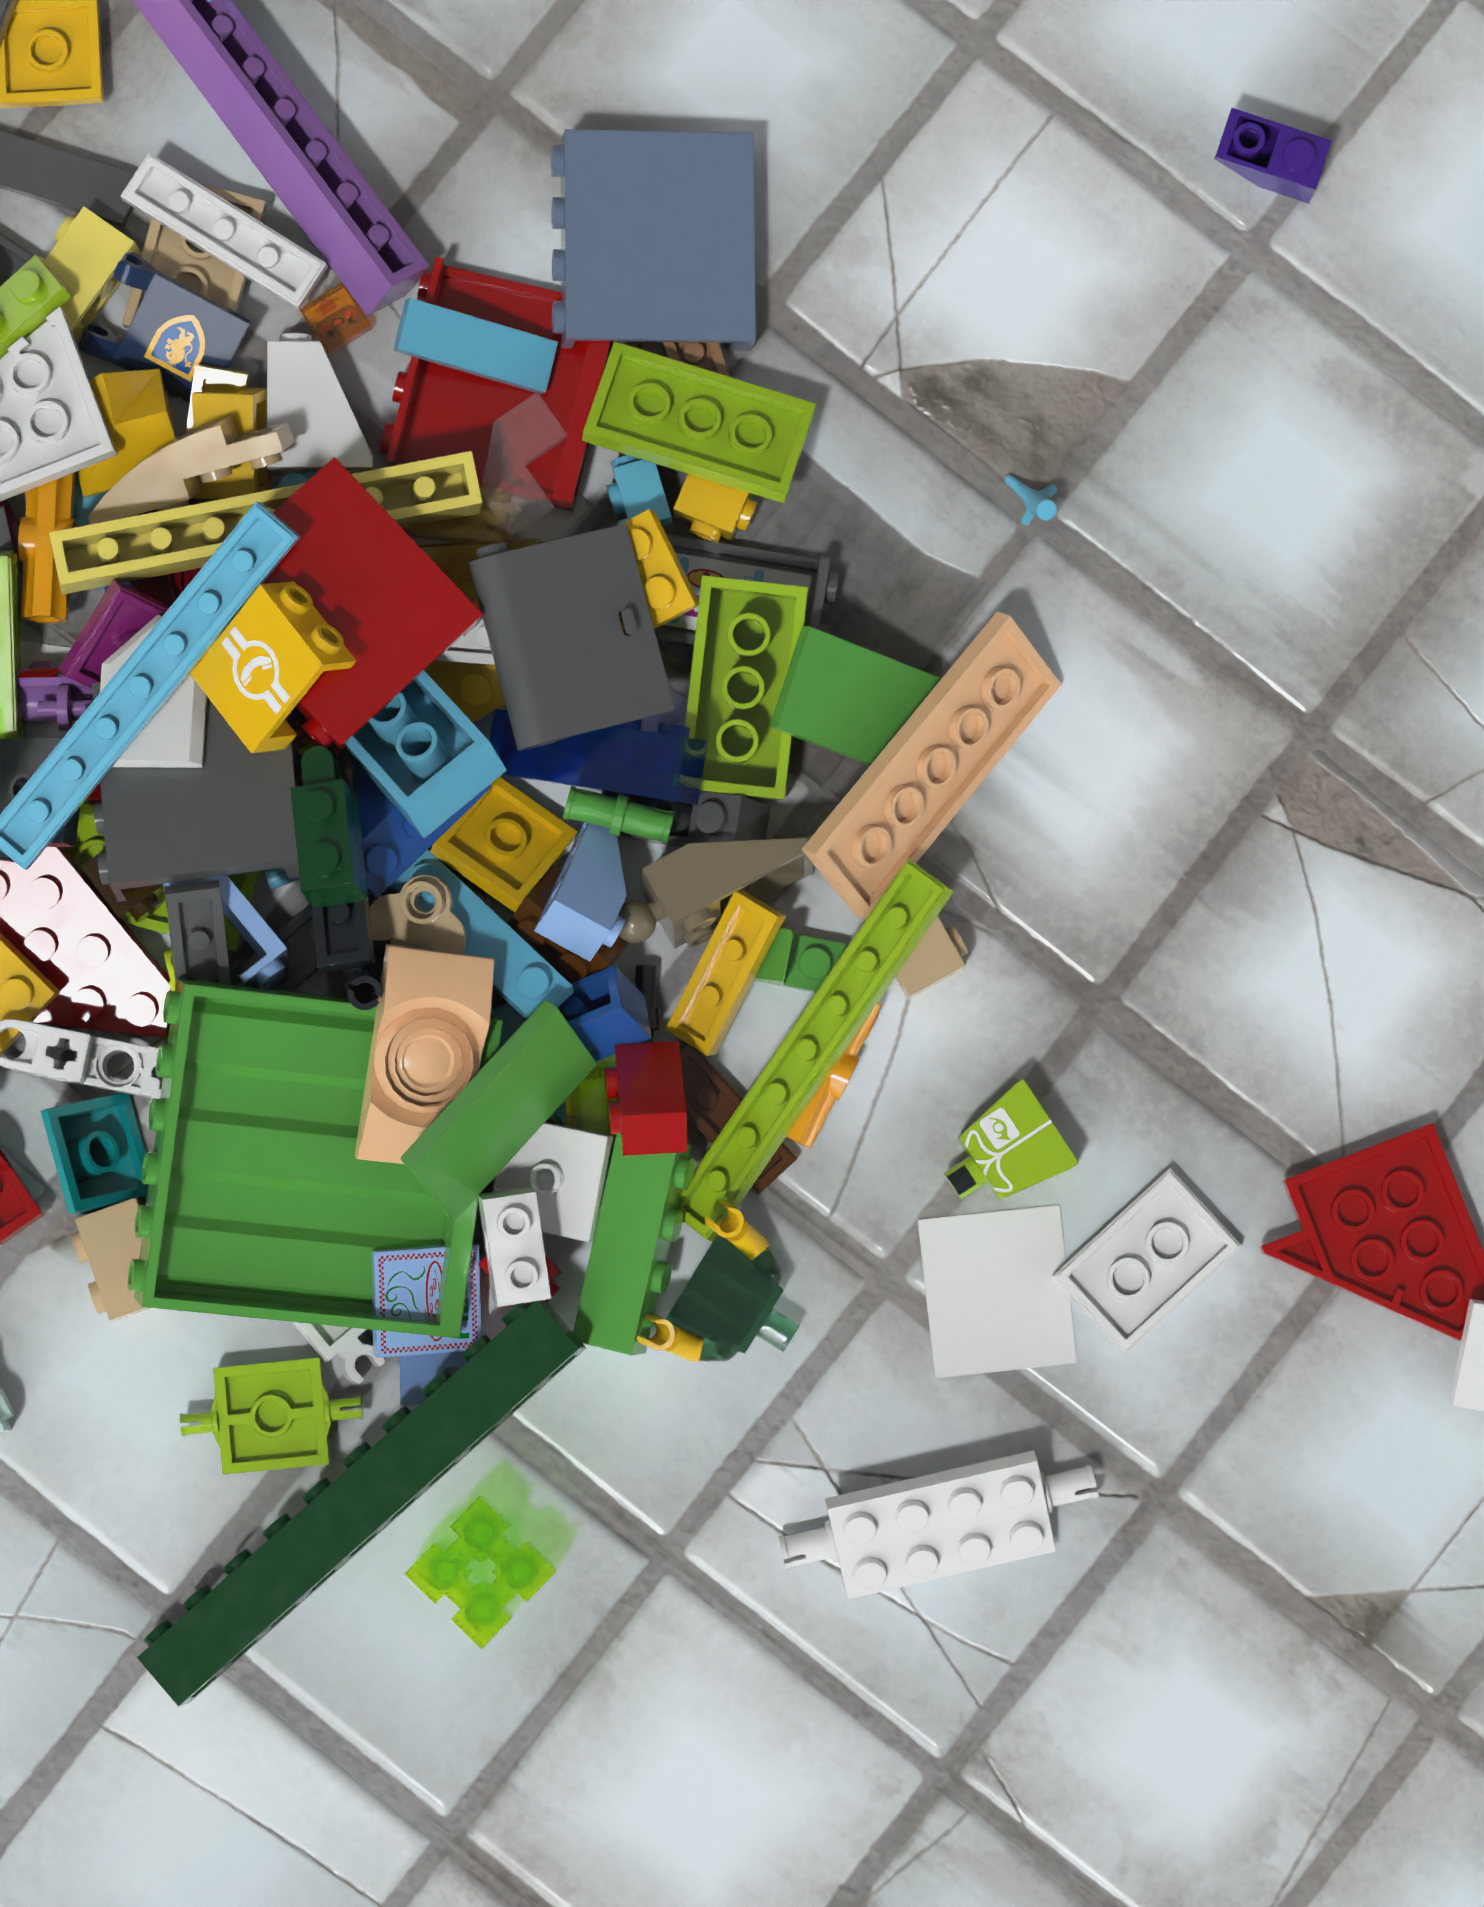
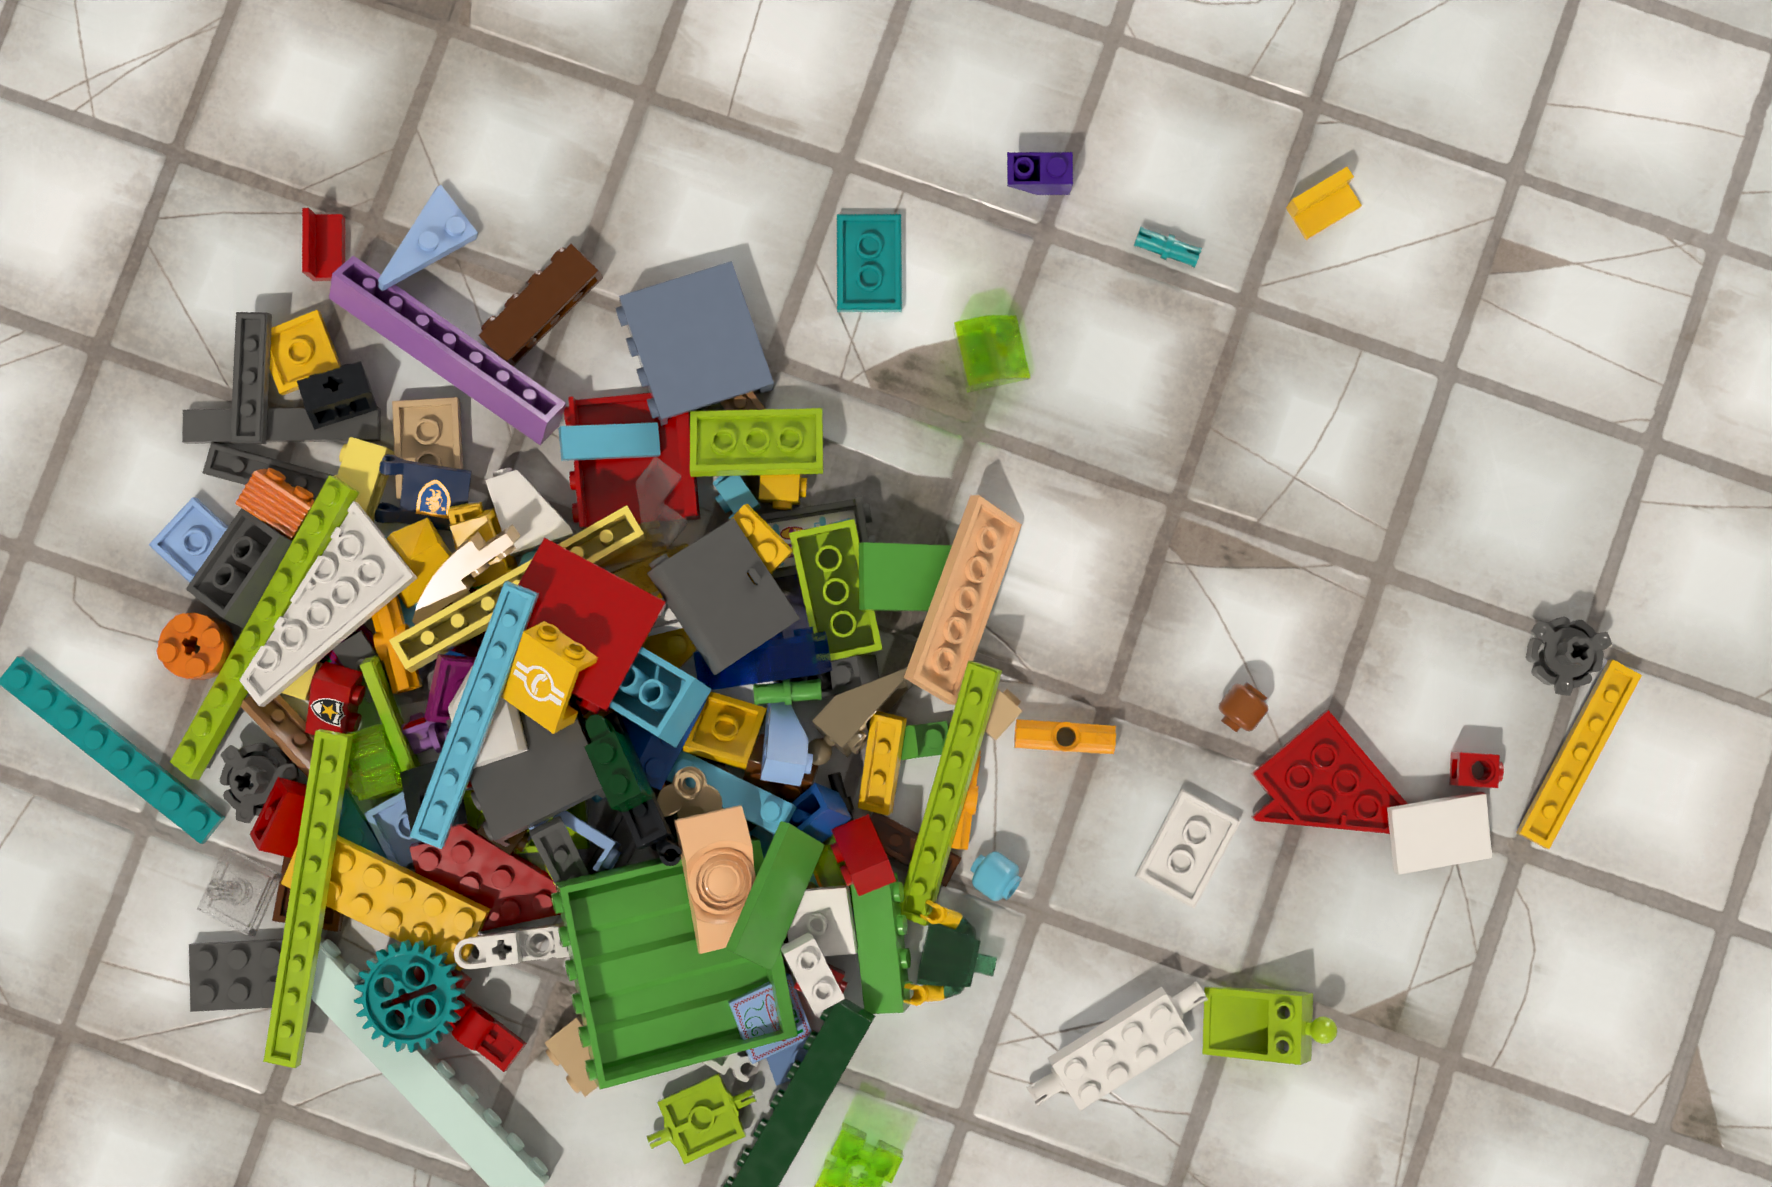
camera: 15 degrees left, 0 degrees up
(85, 136) = (337, 395): none -> black brick
(96, 1152) = (543, 997): teal slope -> none
(224, 231) = (438, 423): white tile -> none
(335, 319) = (522, 453): clear orange tile -> none
(439, 102) = (540, 304): none -> reddish brown brick
(839, 1202) = (995, 876): none -> medium azure head
(963, 205) = (869, 263): none -> teal tile
(995, 1291) = (1105, 896): white sticker -> none
(1010, 1147) = (1085, 809): lime torso -> none
(1036, 501) = (971, 422): medium azure bar -> none
(1050, 1041) = (1087, 737): none -> light orange piece
(1104, 404) = (990, 351): none -> clear neon green slope
(1168, 1563) = (1254, 1025): none -> lime slope
(1304, 1075) = (1243, 707): none -> dark orange head
(1431, 334) = (1167, 247): none -> teal pin

